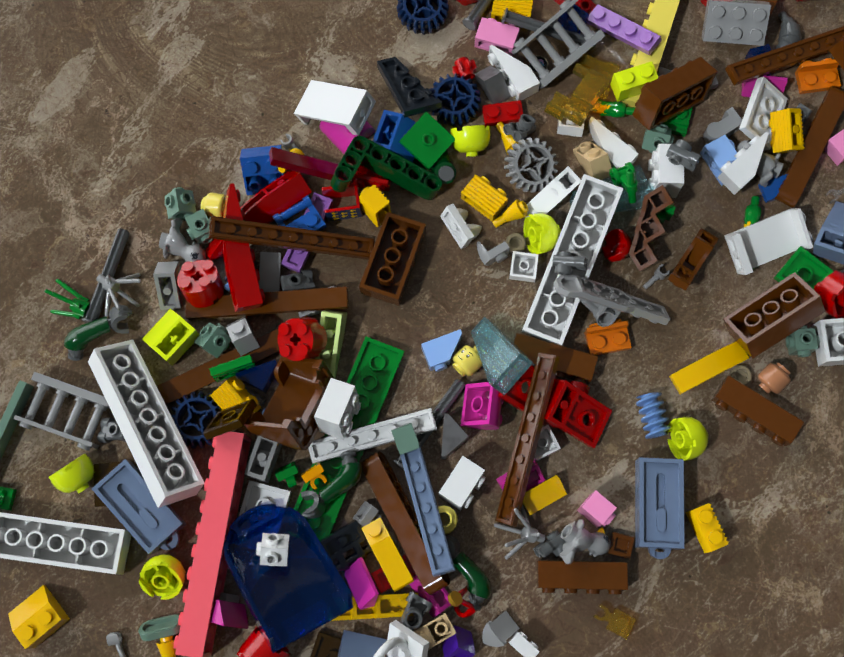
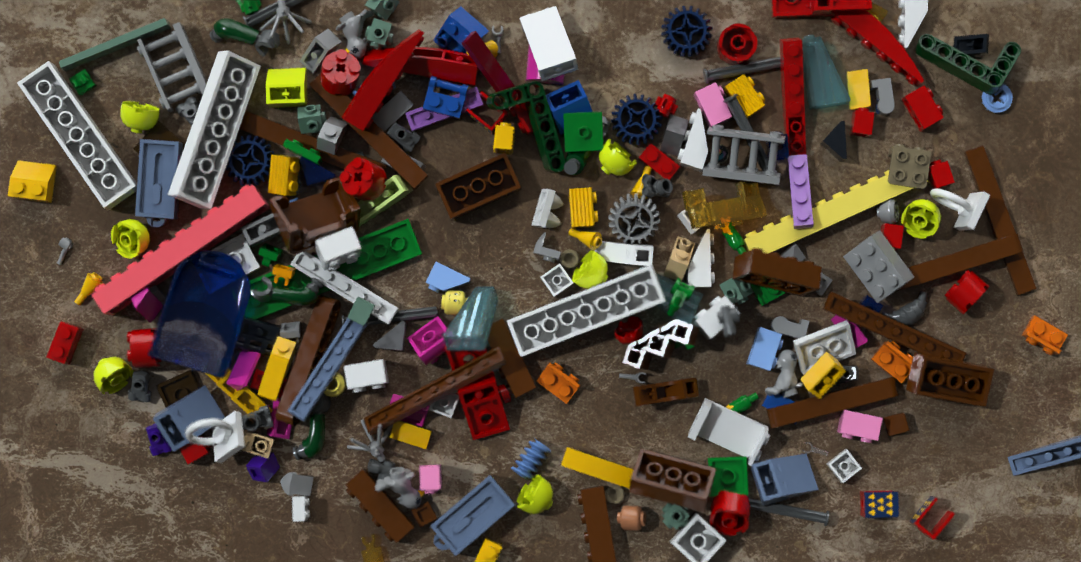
camera: 40 degrees right, 10 degrees up
(159, 627) = (99, 266): sand green tile -> none
(213, 204) = (403, 27): light yellow head -> none
(230, 419) = (265, 186): dark brown tile -> none
(273, 549) = (211, 294): white brick -> none
(290, 238) = (425, 106): reddish brown tile -> none
(406, 89) = (609, 83): black wing -> none
(455, 600) = (287, 438): piece -> none
(565, 262) = (575, 309): dark grey plate -> none
(607, 301) = (579, 360): light grey piece -> none
(630, 81) = (760, 236): neon yellow brick -> none
(744, 168) = (763, 369): white slope -> none

